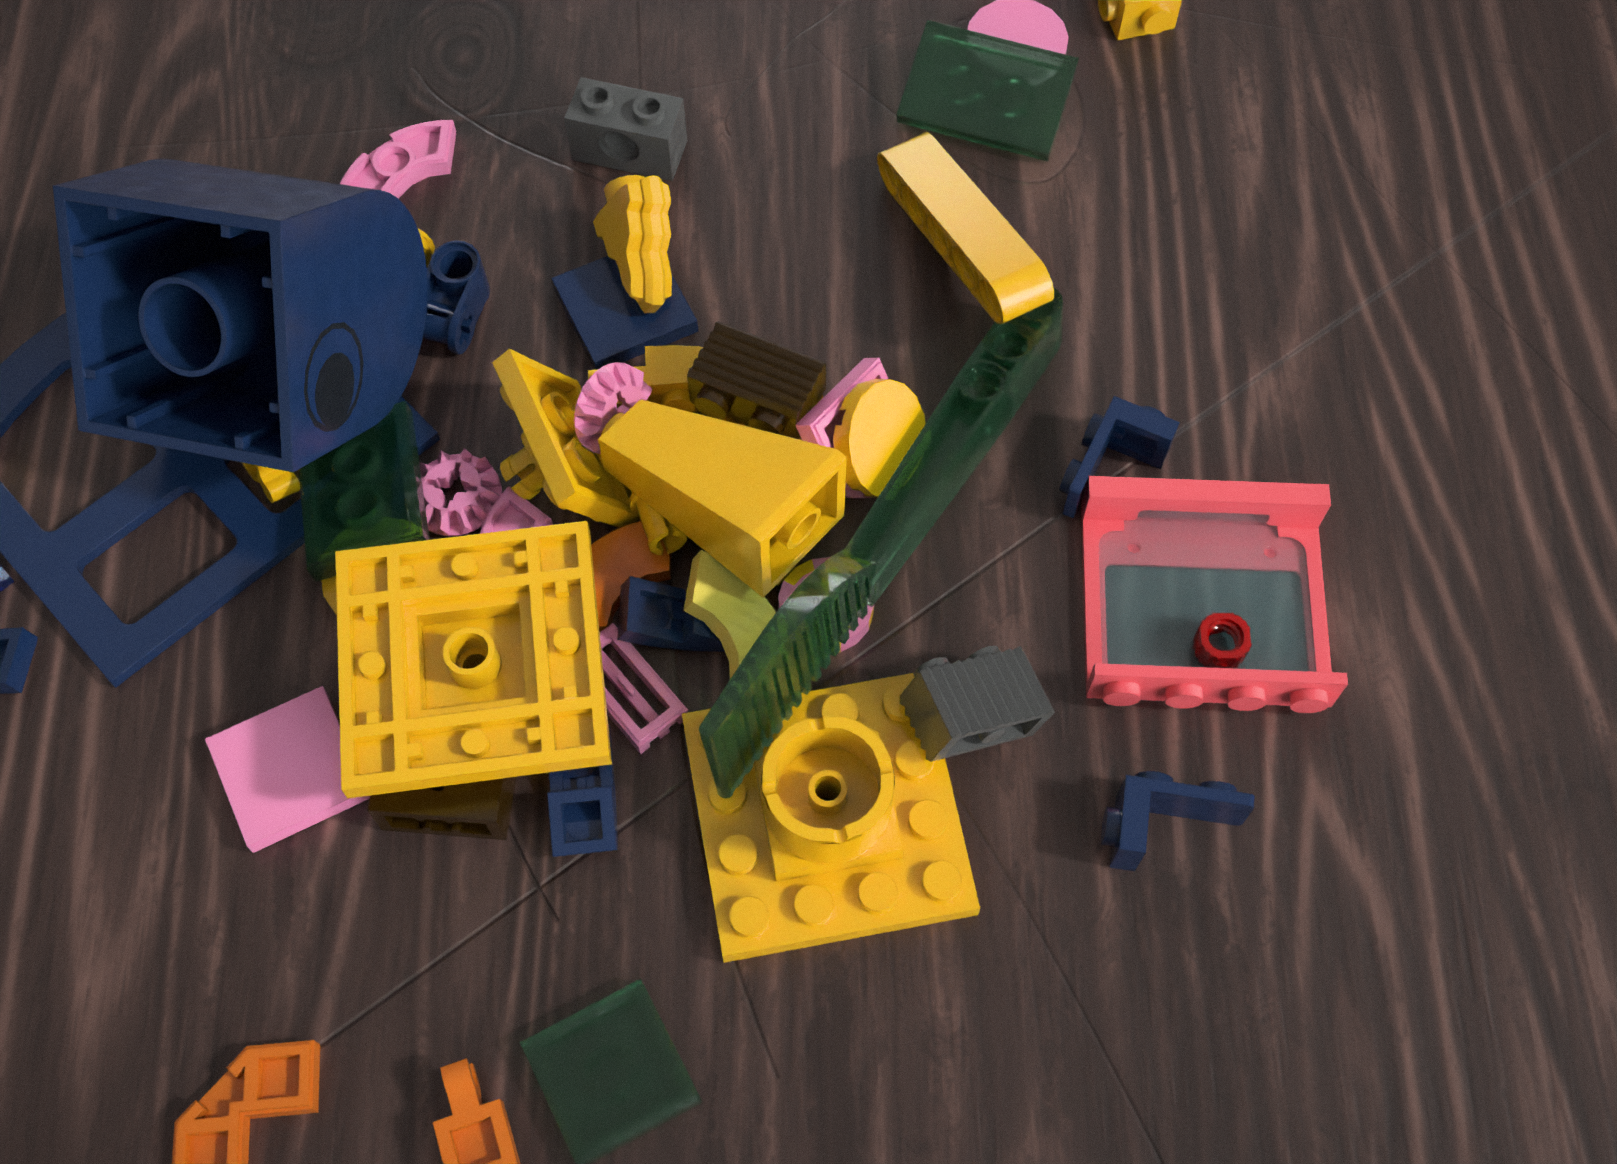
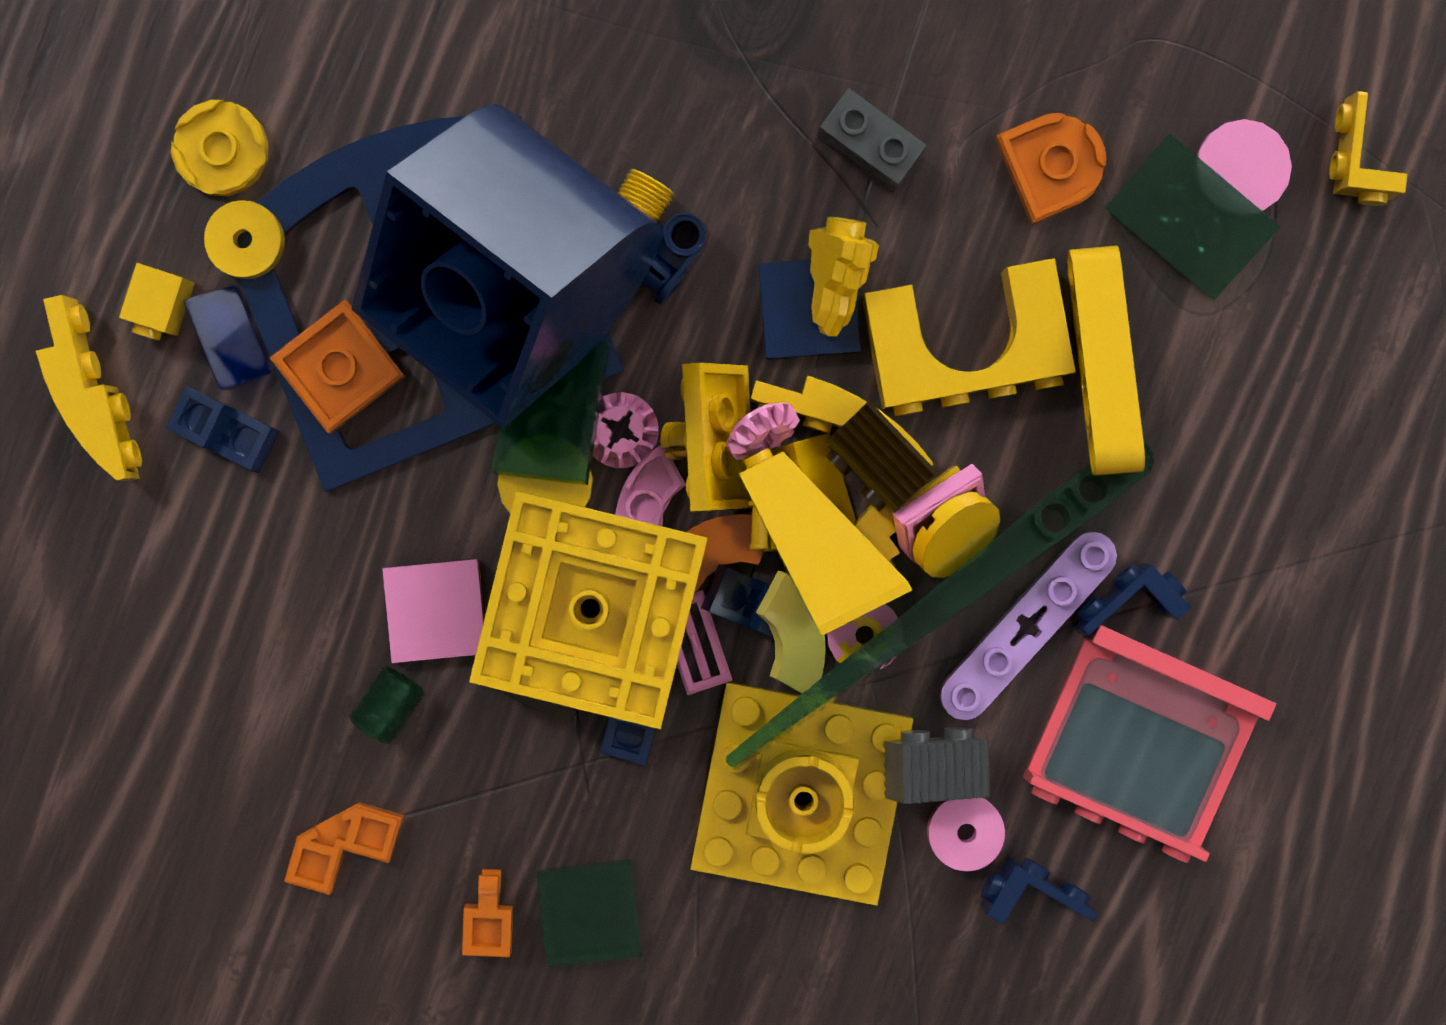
camera: 25 degrees right, 25 degrees up
(91, 538) = (337, 367): none -> orange tile
(252, 896) = (386, 705): none -> clear green piece
(406, 158) = (667, 89): bright pink tile -> none
(824, 101) = (1053, 163): none -> orange tile
(886, 253) = (1034, 352): none -> yellow arch
(994, 576) = (1059, 589): none -> lavender piece
(1044, 808) = (972, 852): none -> bright pink piece
(1219, 623) = (1147, 795): red axle -> none

